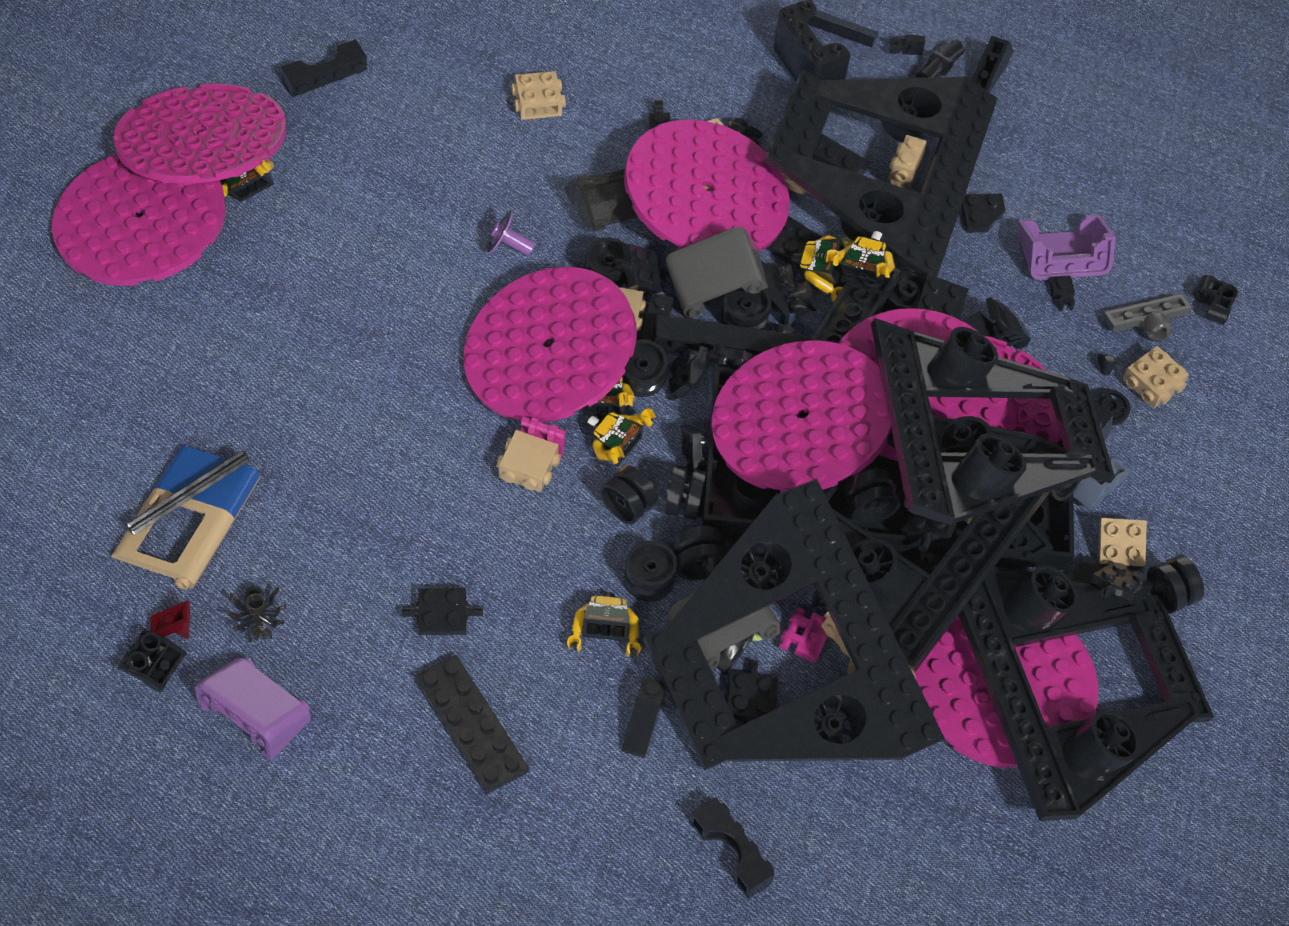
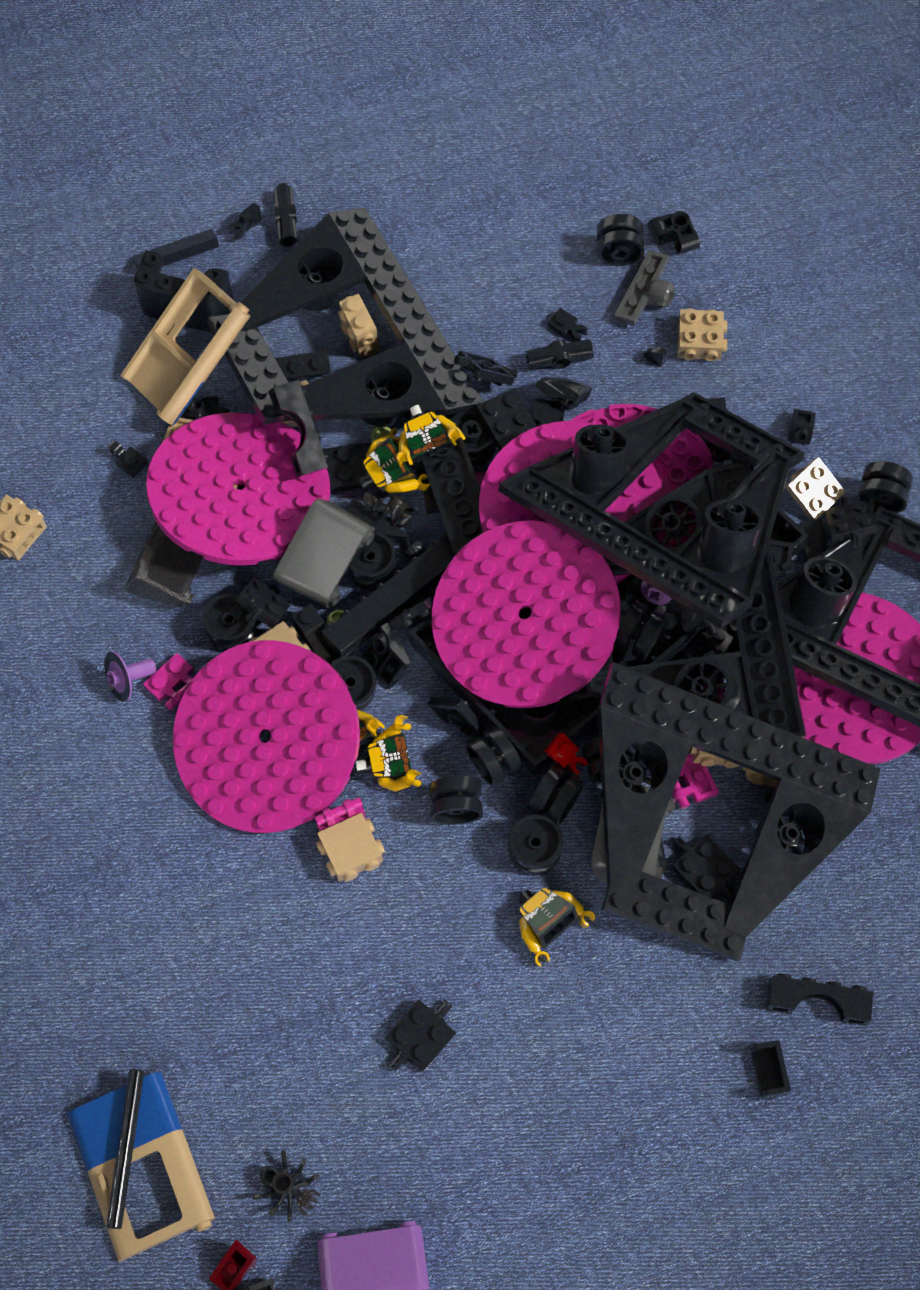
camera: 40 degrees left, 10 degrees up
(471, 724) = (540, 1102): black plate -> none
(529, 263) = (168, 678): none -> dark pink plate
(644, 717) = (654, 965): black slope -> none
(646, 853) = (770, 1070): none -> black panel
(732, 526) = (564, 752): none -> red plate
(744, 81) = (163, 367): none -> tan piece
(794, 157) = (291, 401): none -> black arch
(965, 262) = (485, 368): none -> black plate
(982, 211) = (446, 311): black plate -> none
(992, 63) = (325, 183): black slope -> none
(1034, 303) = (559, 354): none -> black piece
(1068, 253) = (539, 288): medium lavender windscreen -> none
(1113, 405) = (693, 385): black wheel -> none
(1162, 496) = (802, 426): none -> black bracket
(1164, 266) = (620, 240): none -> black wheel

